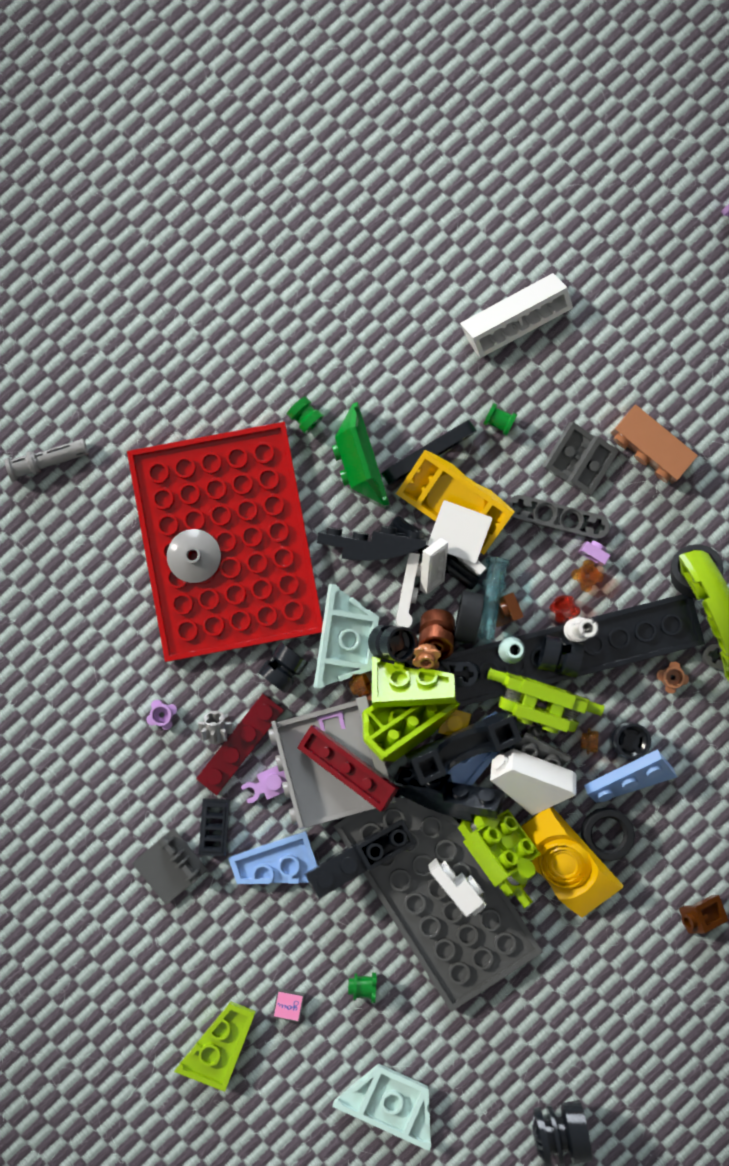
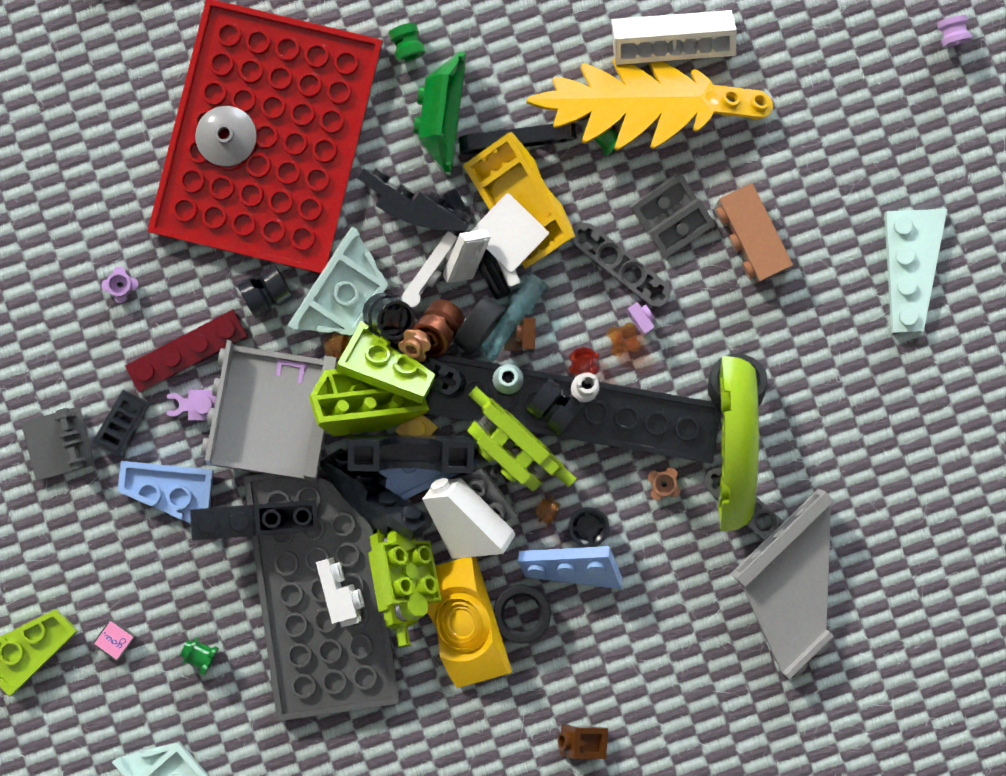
camera: 30 degrees right, 0 degrees up
(215, 727) = (168, 321): light grey gear -> none
(348, 768) = (283, 422): dark red plate -> none
(536, 366) = (642, 99): none -> yellow plant

